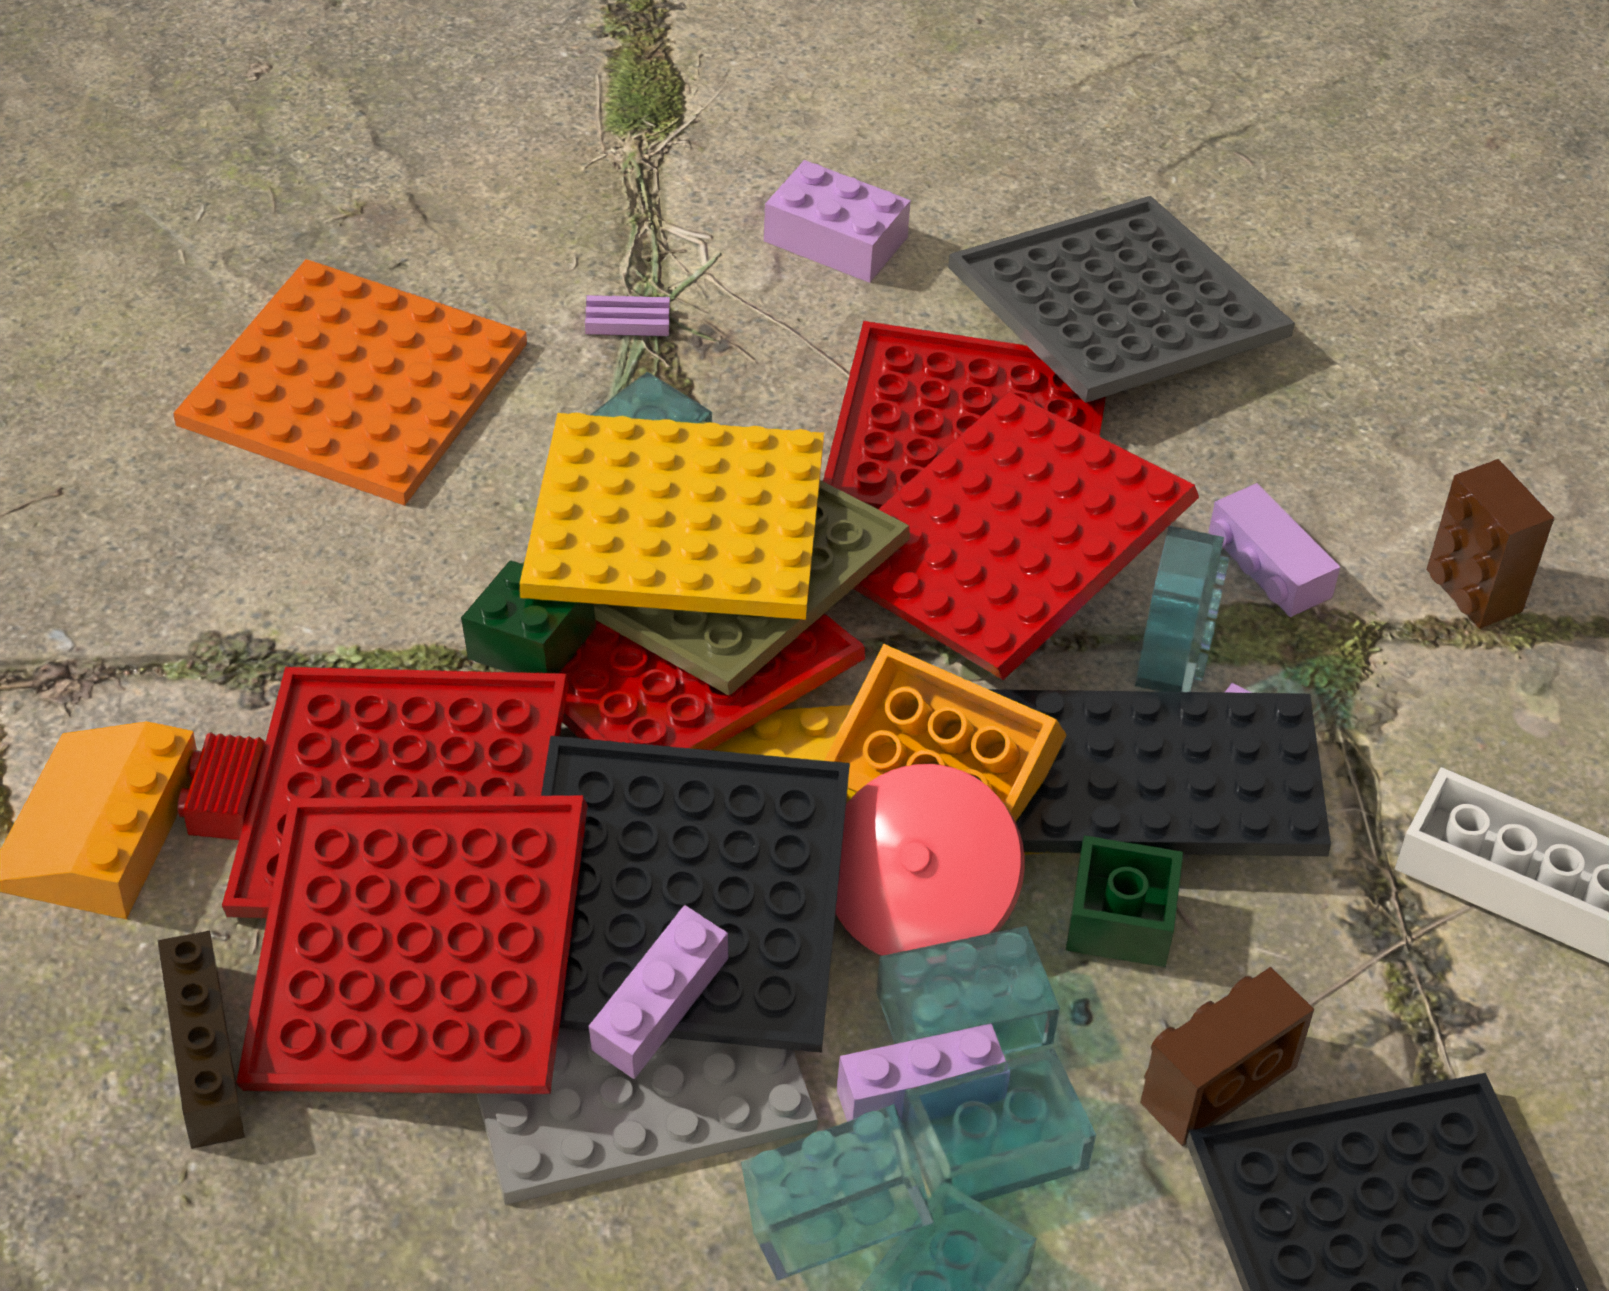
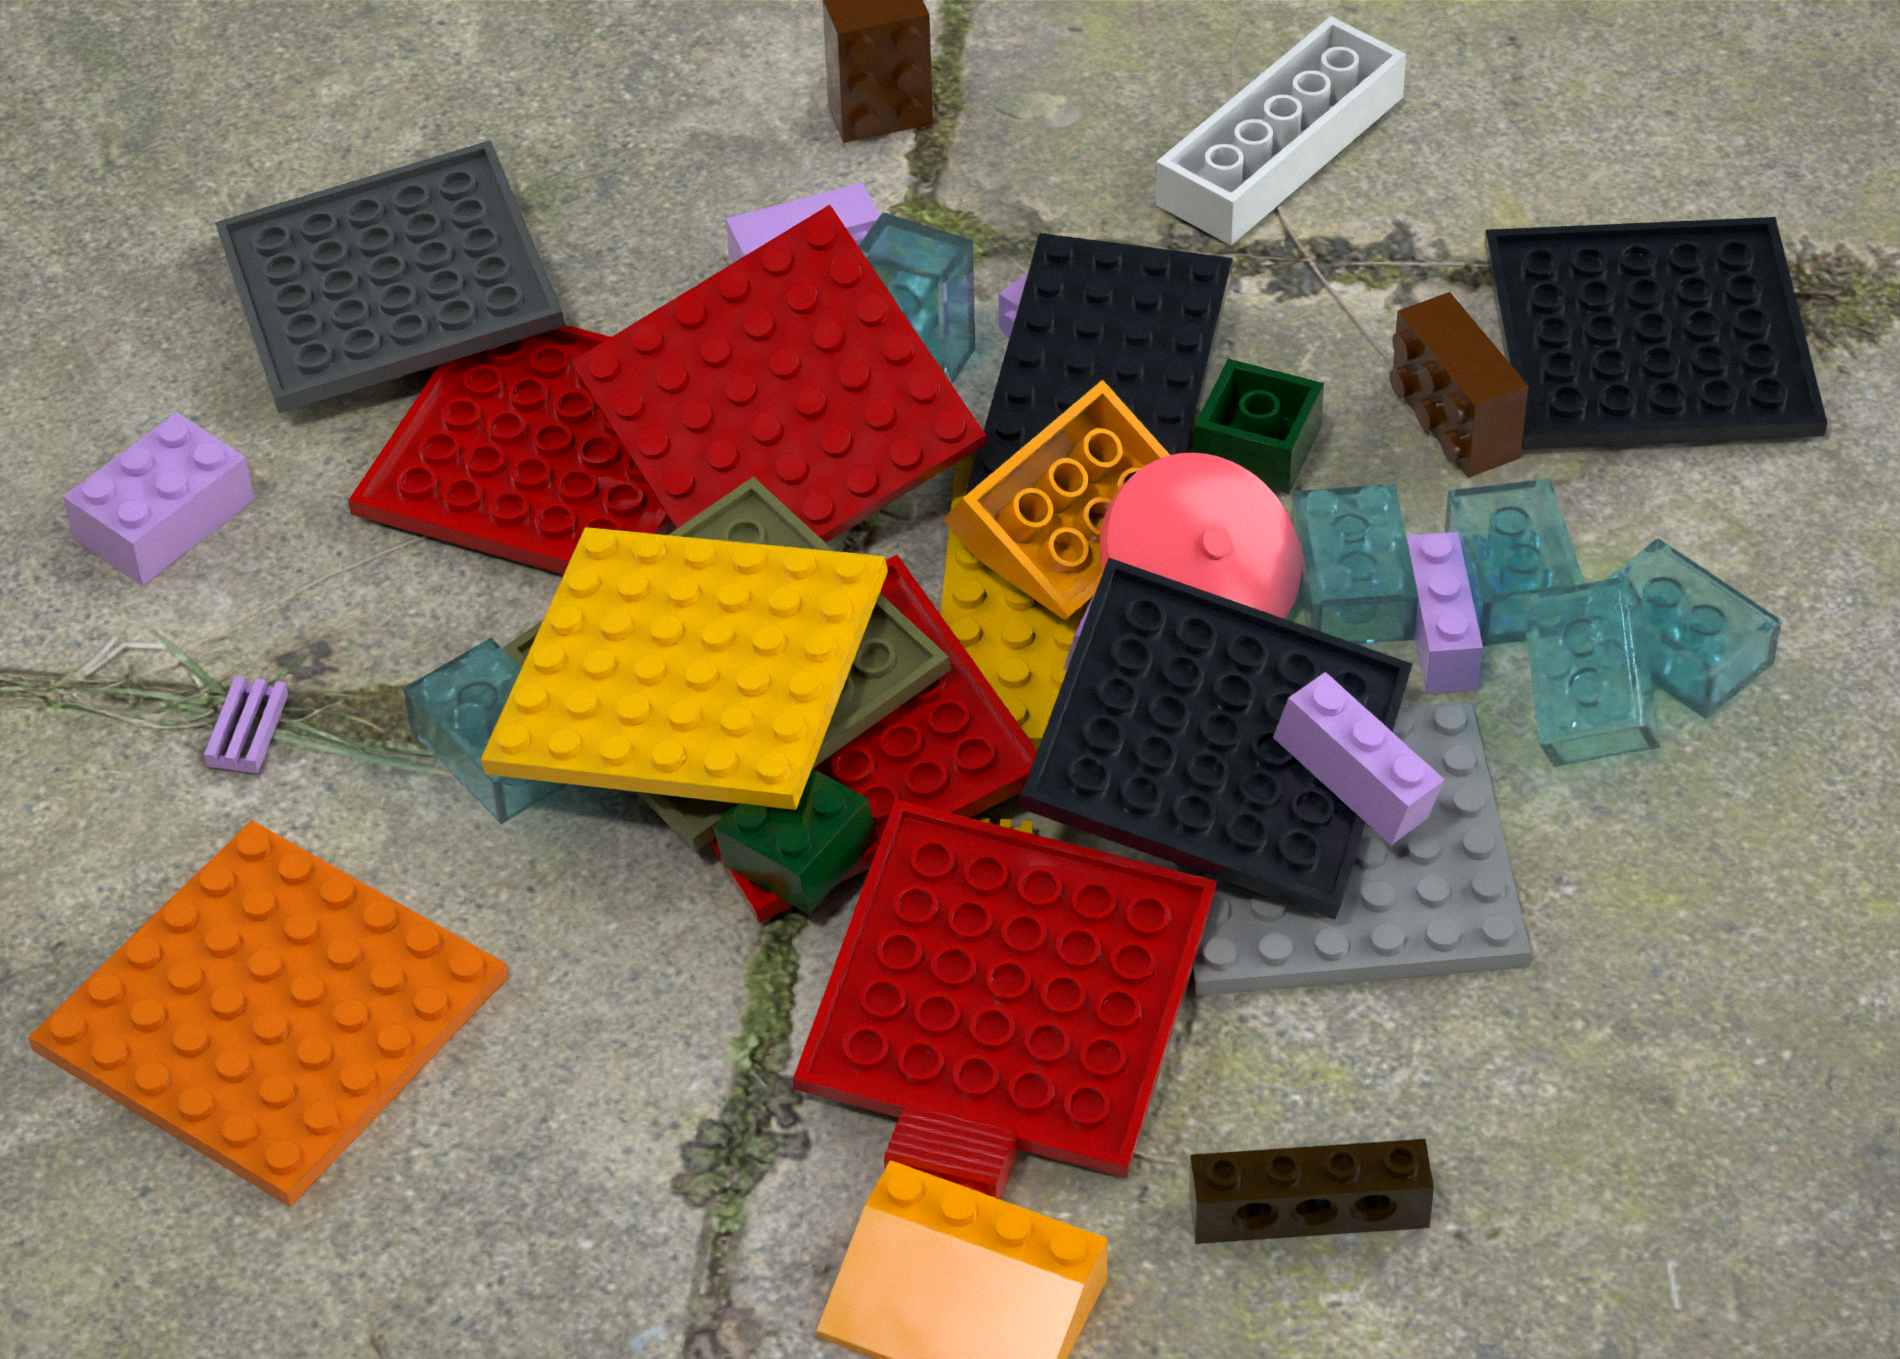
camera: 75 degrees left, 0 degrees up
(416, 946) = (1243, 966): red plate -> none

